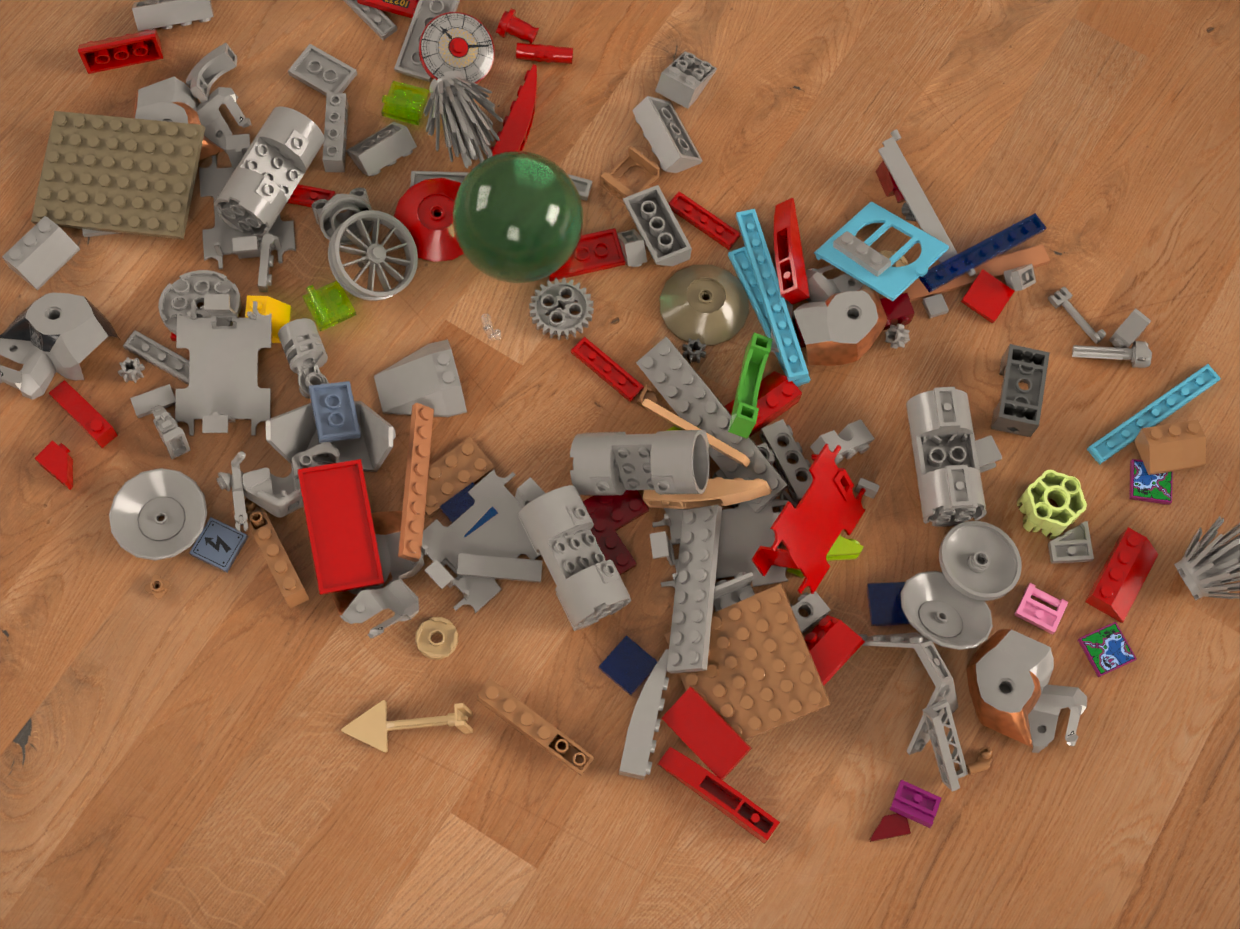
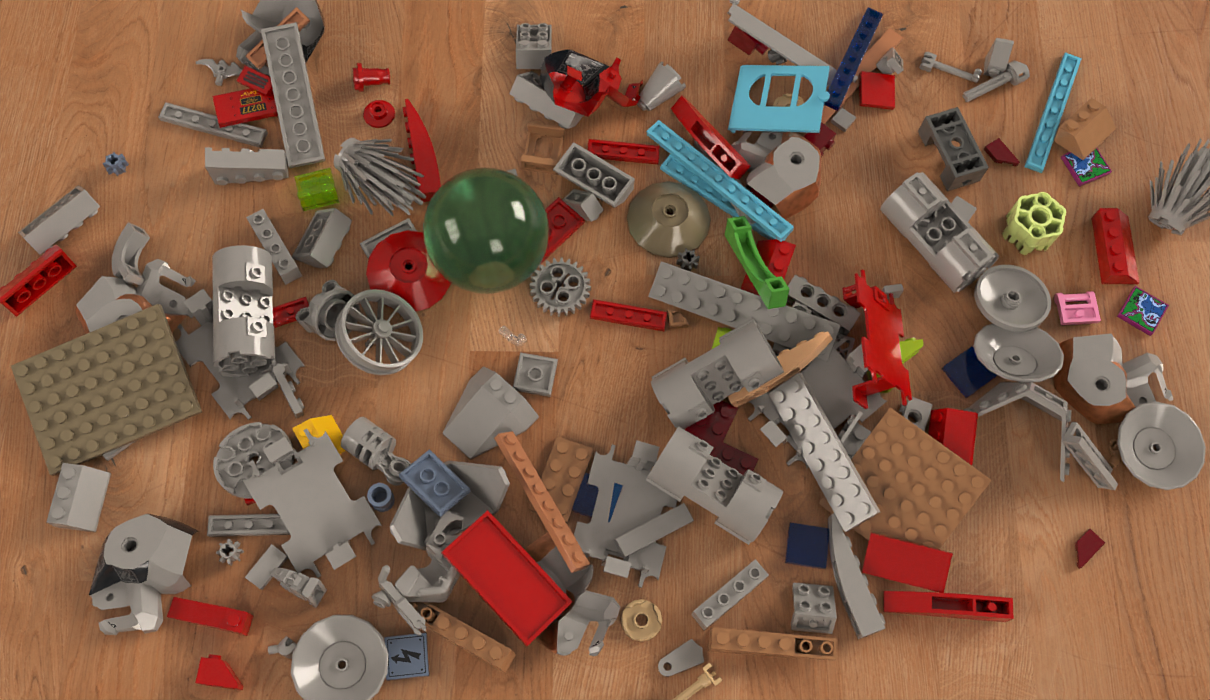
camera: 30 degrees left, 0 degrees up
(122, 474) = (285, 648): none -> light grey piece
(283, 398) = (380, 497): none -> sand blue piece
(322, 71) = (227, 201): light grey plate -> none
(328, 305) = (365, 395): clear neon green plate -> none
(357, 48) = (245, 165): none -> light grey wedge
(449, 691) = (682, 658): none -> light grey piece
(456, 44) = (329, 118): light grey dish -> none
(488, 373) = (535, 374): none -> light grey tile
(506, 71) = (379, 119): none -> red piece
(527, 663) = (729, 594): none -> light grey brick
(544, 53) = (405, 86): red axle -> none
(594, 721) = (813, 608): none -> light grey bracket
(684, 425) = (732, 324): light nougat tile -> none
(693, 120) = (567, 71): none -> piece
(775, 180) = (660, 87): none -> light grey cone
(852, 439) = (855, 259): light grey arch -> none
(862, 253) = (768, 108): light grey plate -> none
(897, 336) = (828, 160): light grey gear -> none
(915, 803) = (1093, 517): magenta plate -> none
(1048, 776) = (1177, 443): none -> light grey dish
(1070, 422) = (1000, 153): none -> dark red tile
(1072, 546) = (1066, 247): light grey wing -> none

